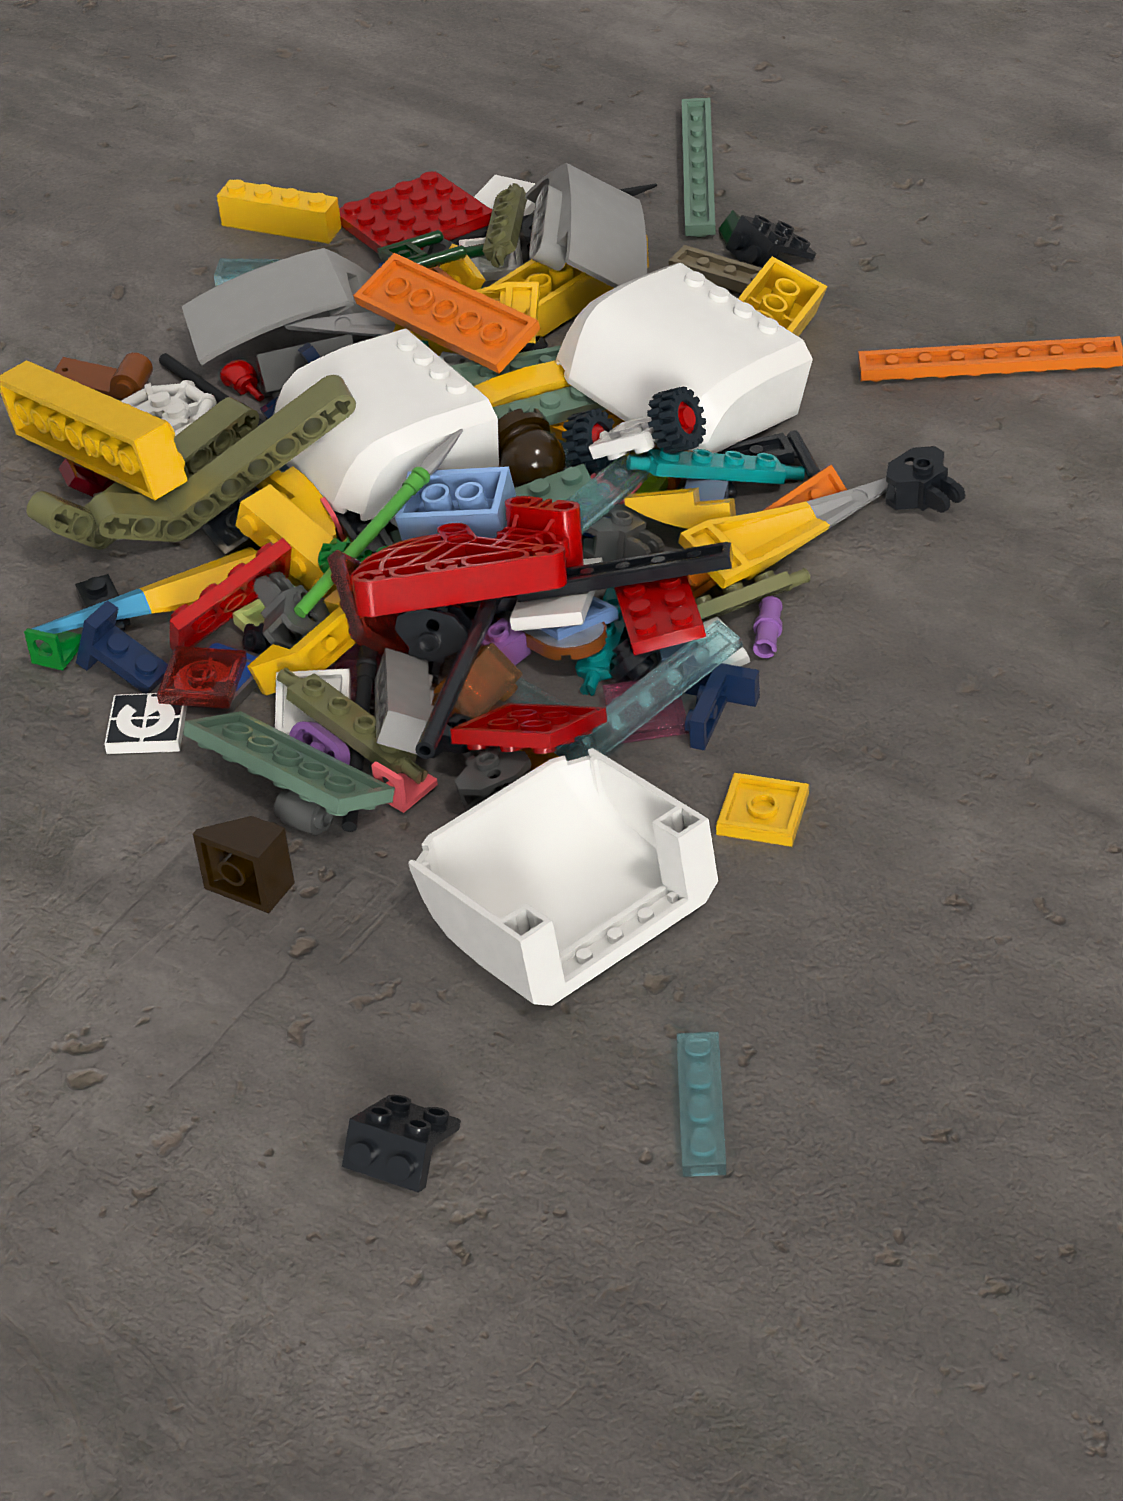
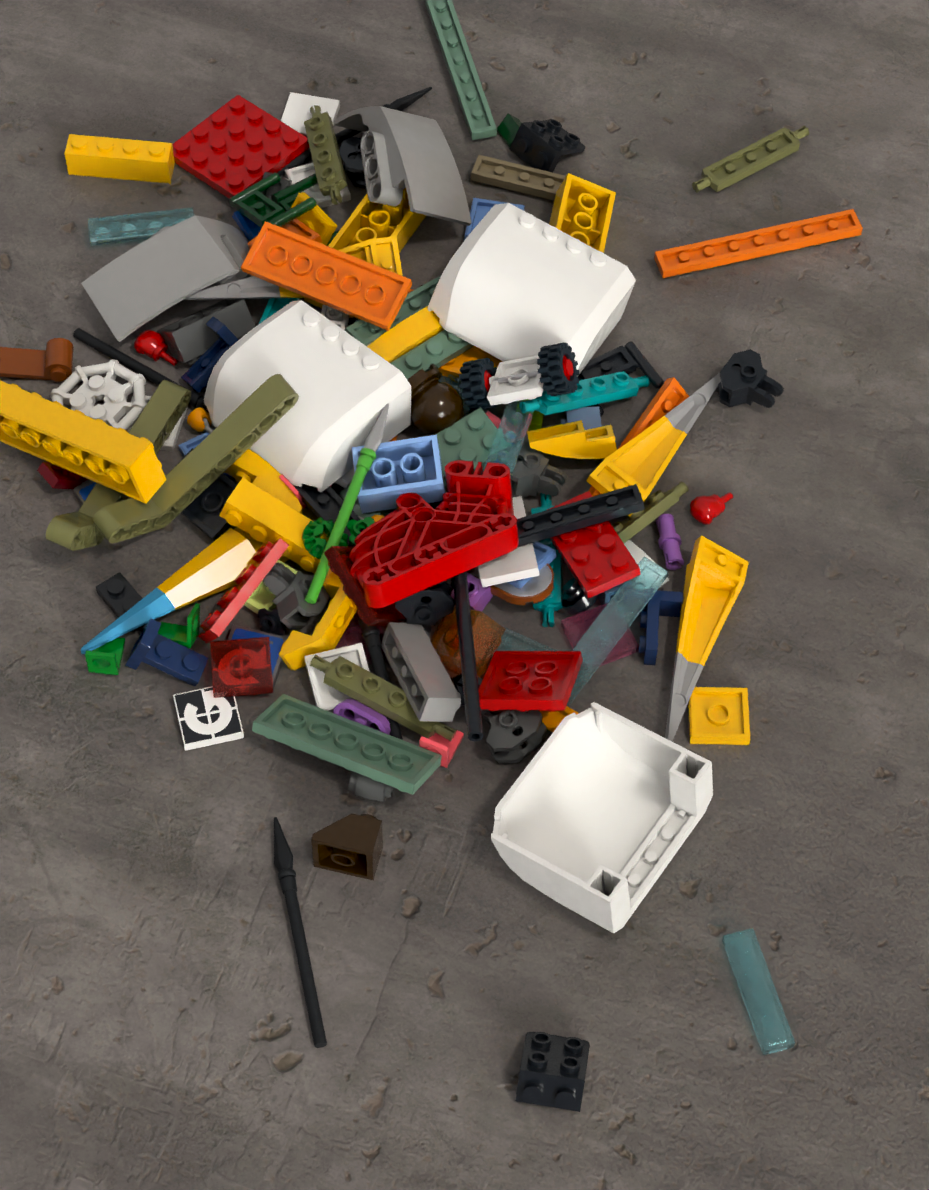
camera: 20 degrees left, 15 degrees up
(154, 640) = (183, 634): none -> green bracket
(164, 896) = (284, 863): none -> black piece
(792, 683) = (709, 594): none -> yellow plate
(827, 600) = (708, 507): none -> red piece
(1011, 281) = (750, 159): none -> olive plate

